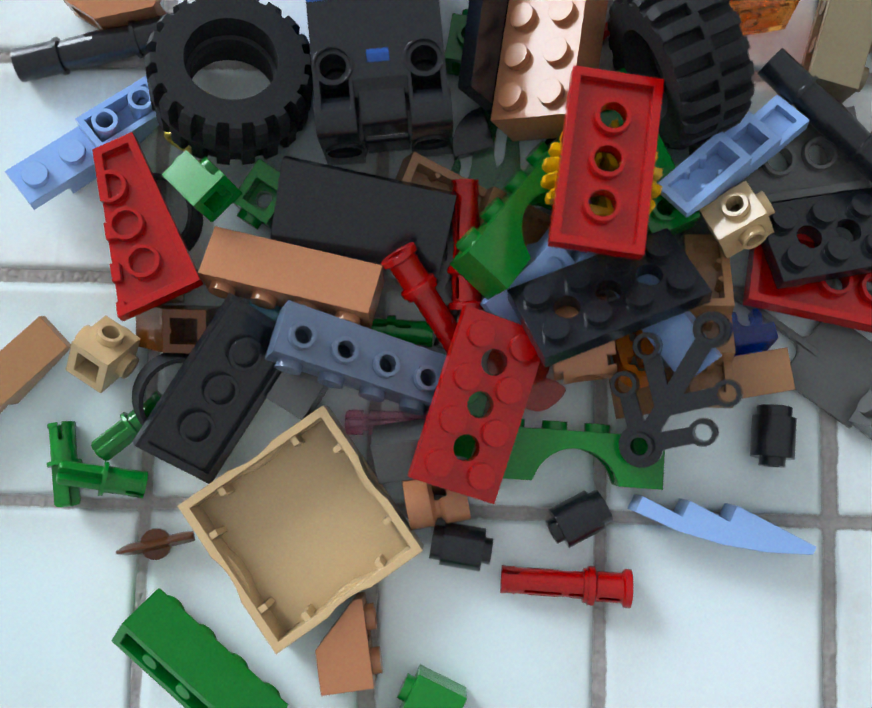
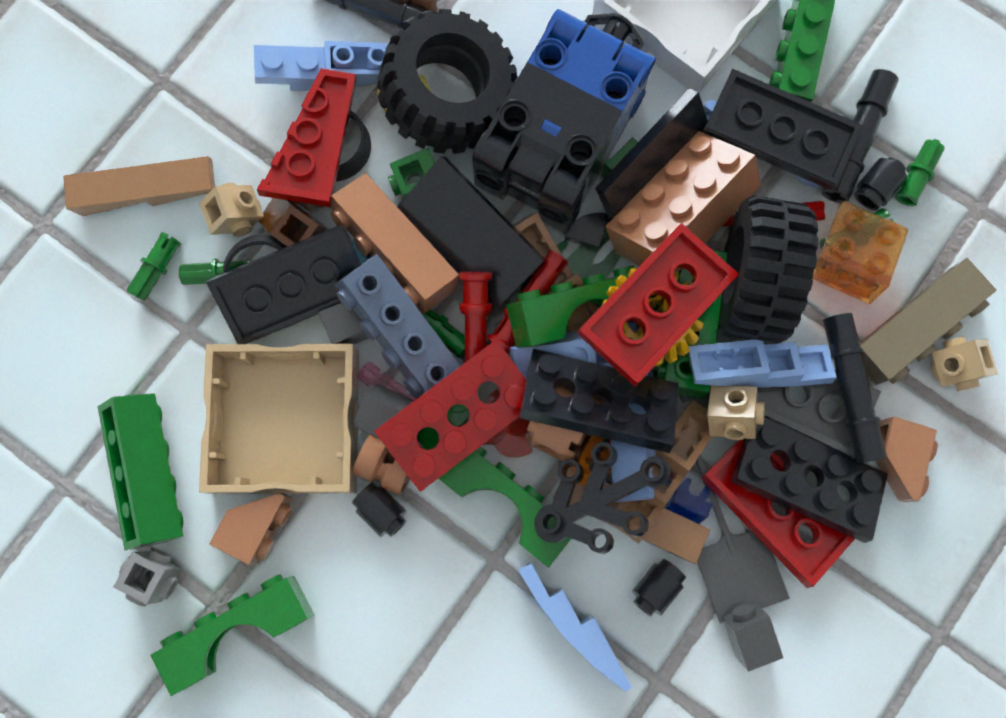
camera: 35 degrees right, 5 degrees down
(103, 478) = (171, 294): green axle -> none
(156, 543) = (175, 363): reddish brown piece -> none
(202, 185) = (376, 140): brick -> none
(578, 518) = (476, 548): black brick -> none
(586, 585) = (449, 601): red pin -> none

